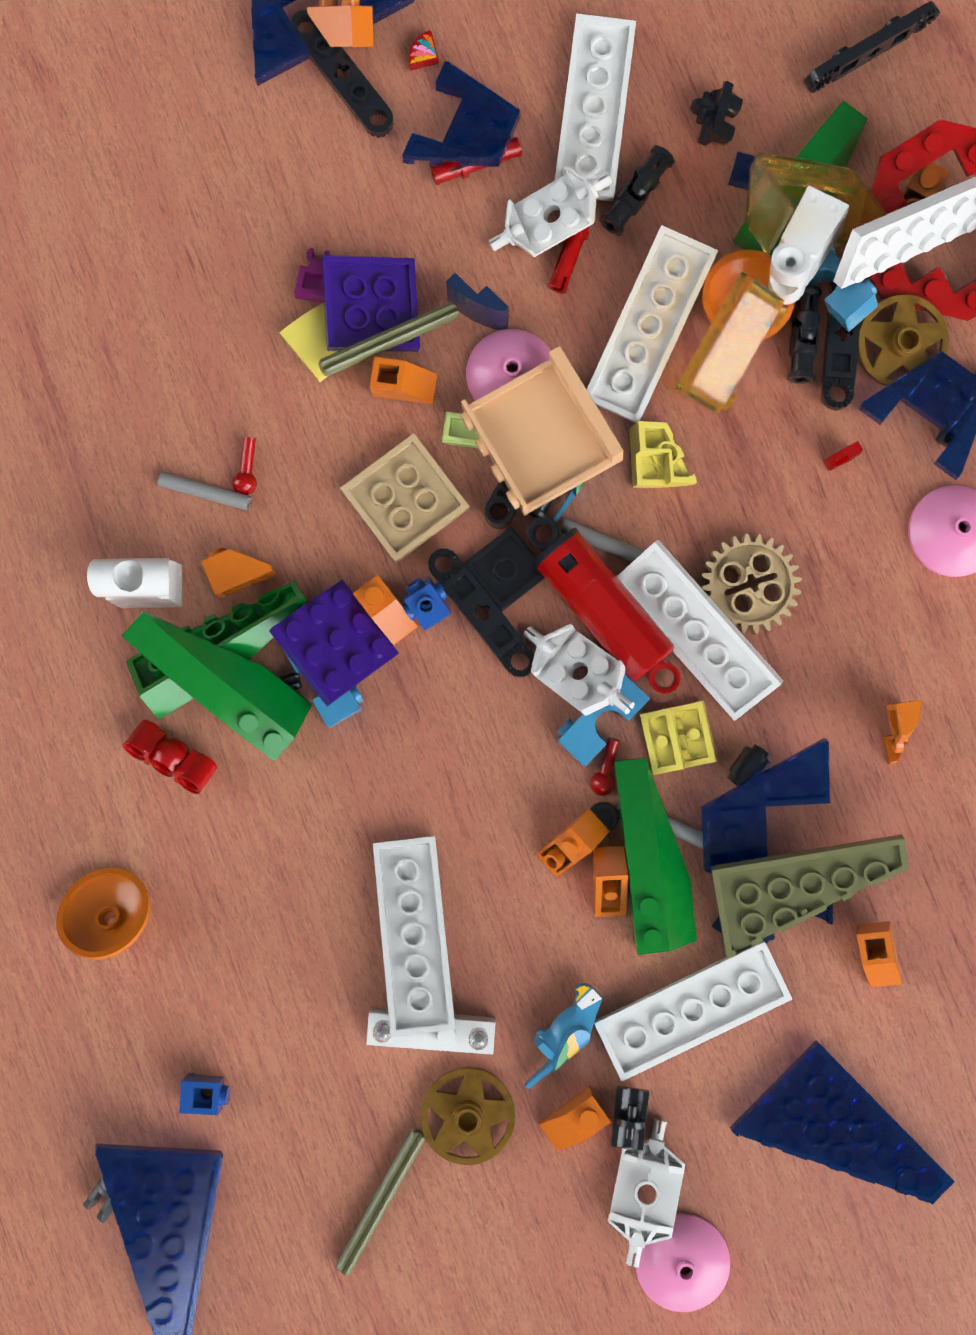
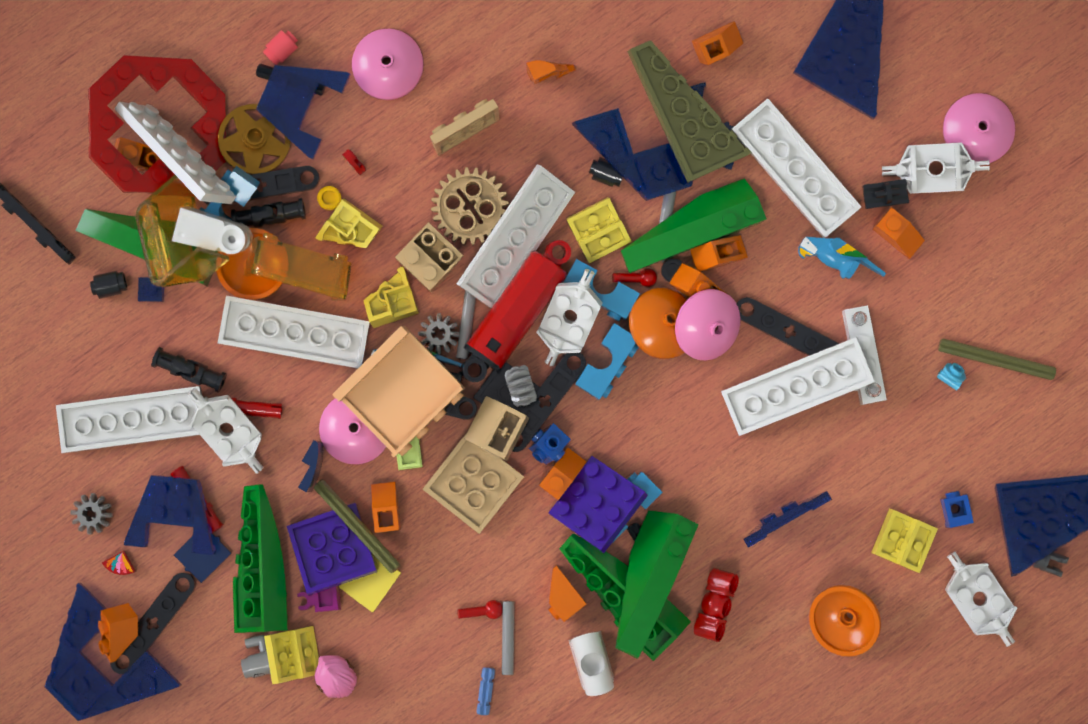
camera: 105 degrees left, 0 degrees up
(65, 1109) = (997, 609): none -> white plate
(147, 446) = (485, 691): none -> medium blue axle
(185, 1016) = (904, 540): none -> light yellow slope
(215, 269) = (335, 676): none -> bright pink hair
(255, 224) = (292, 654): none -> light yellow slope
(256, 184) = (256, 664): none -> light grey piece
(256, 879) = (789, 512): none -> clear blue wing
(355, 211) = (261, 580): none -> green wedge
(375, 1137) = (952, 375): none -> medium azure plate
(391, 149) = (202, 564): none -> dark blue piece
(462, 541) = (496, 428): none -> tan slope
(467, 1116) = (918, 312): pearl gold wheel -> none
(488, 684) = (597, 381): none -> dark azure arch
(493, 31) = (98, 507): none -> light grey gear
(503, 927) = (773, 323): none -> black piece
(508, 584) = (520, 385): none -> light grey gear
(534, 836) = (698, 321): none -> bright pink dish
(537, 769) = (650, 324): none -> orange dish
(611, 510) = (442, 326): none -> light grey gear
(699, 515) = (429, 257): none -> tan slope
(712, 111) = (113, 327): black hips -> none
(763, 430) = (349, 226): none -> light yellow slope
(767, 121) = (108, 284): none -> black brick
(804, 415) = (329, 198): none -> yellow tile
(856, 600) = (465, 126): none -> tan plate

